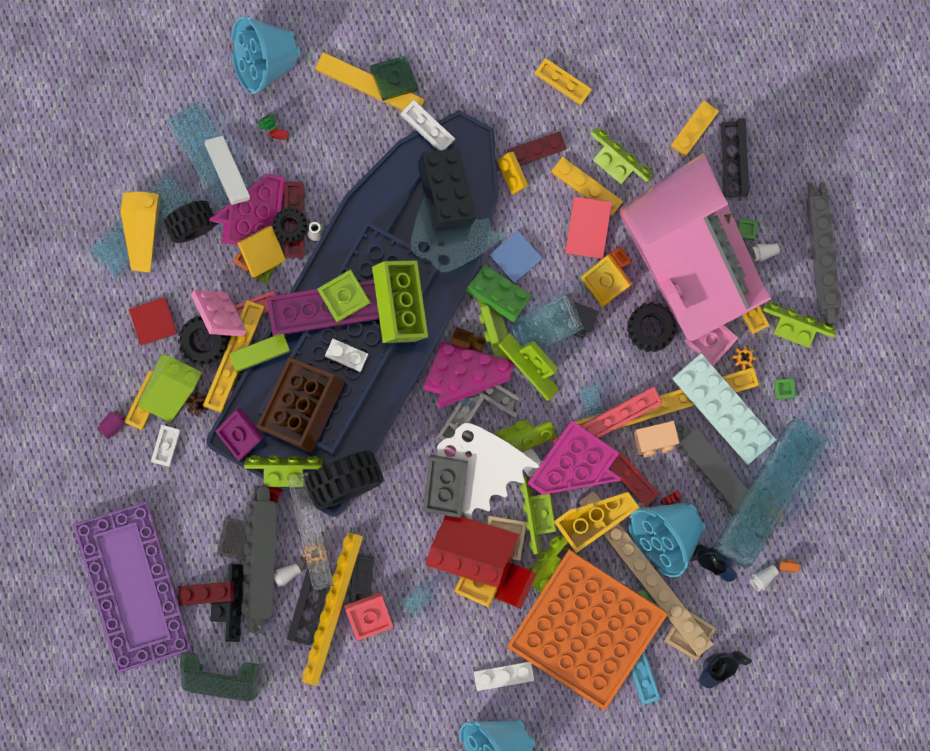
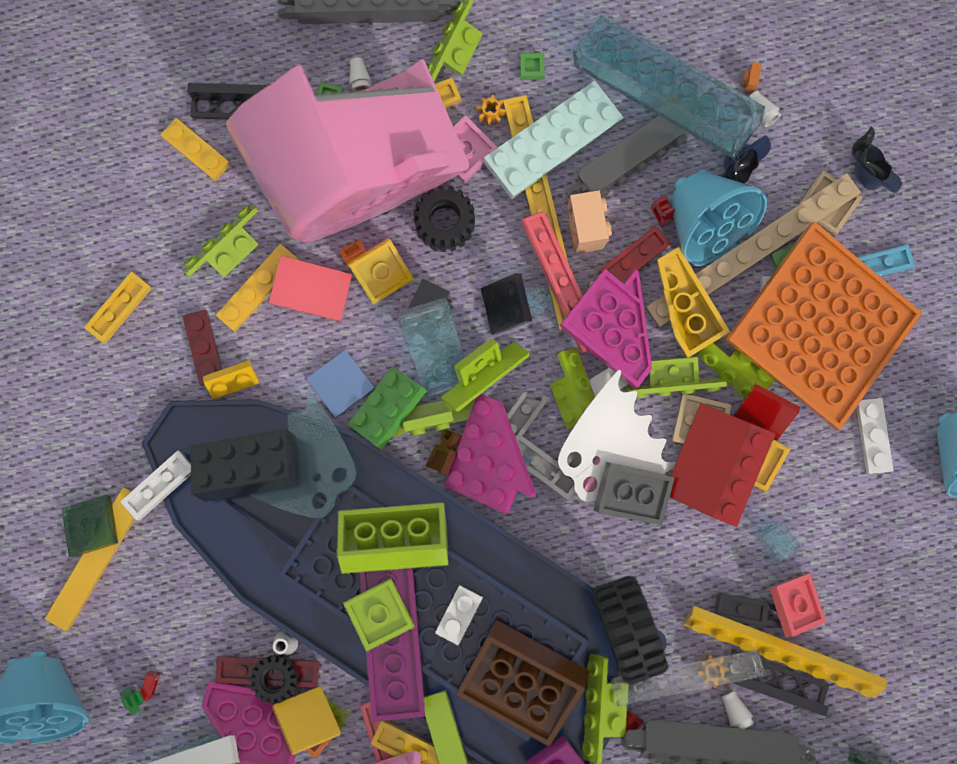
camera: 80 degrees left, 0 degrees up
(586, 379) = (506, 304): none -> black plate

